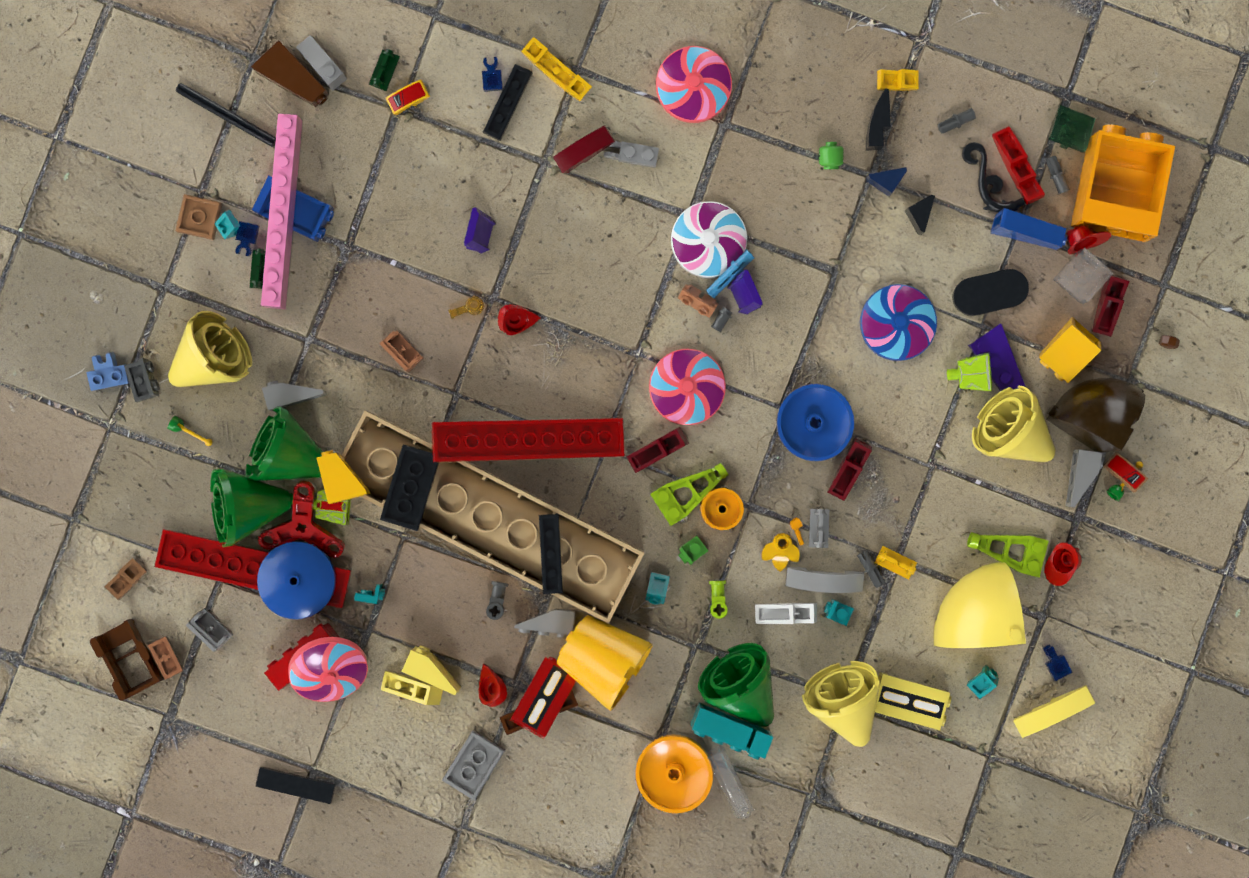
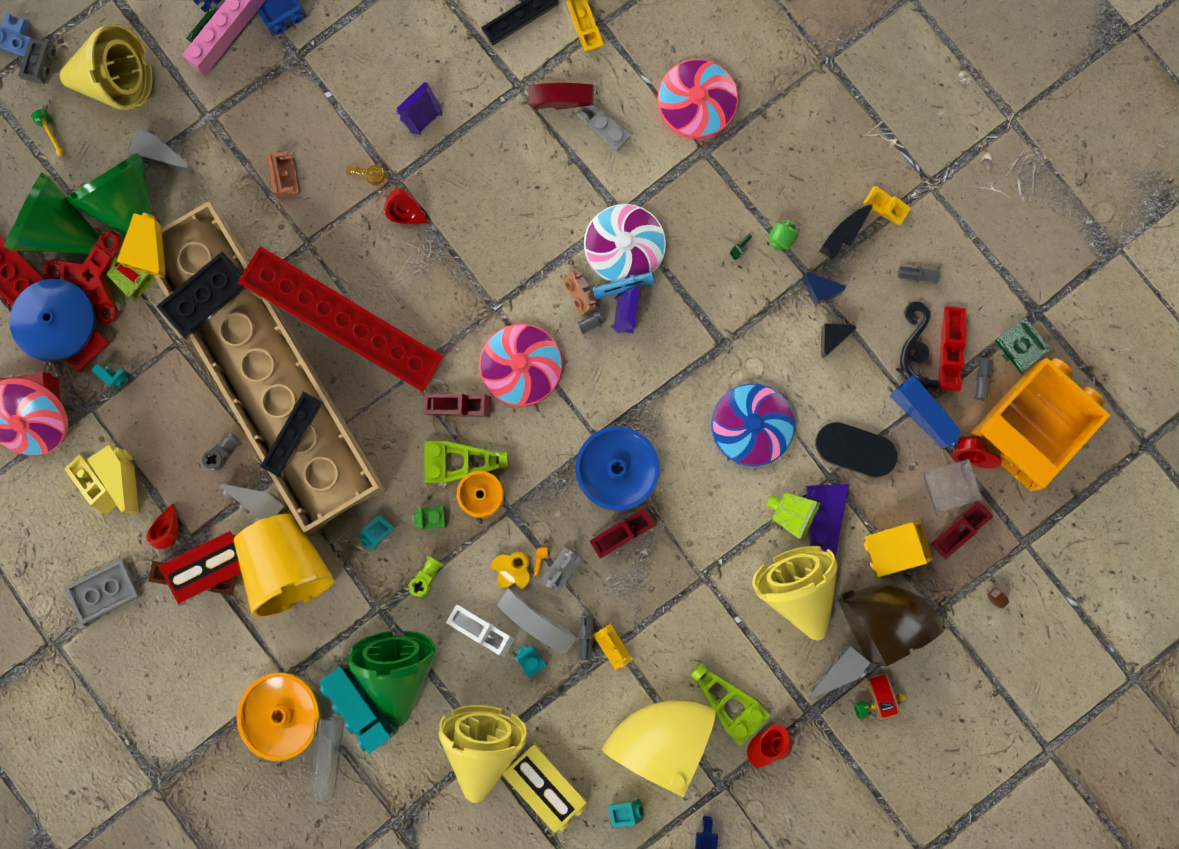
camera: 30 degrees right, 5 degrees down
(801, 191) = (736, 252): none -> dark green hand

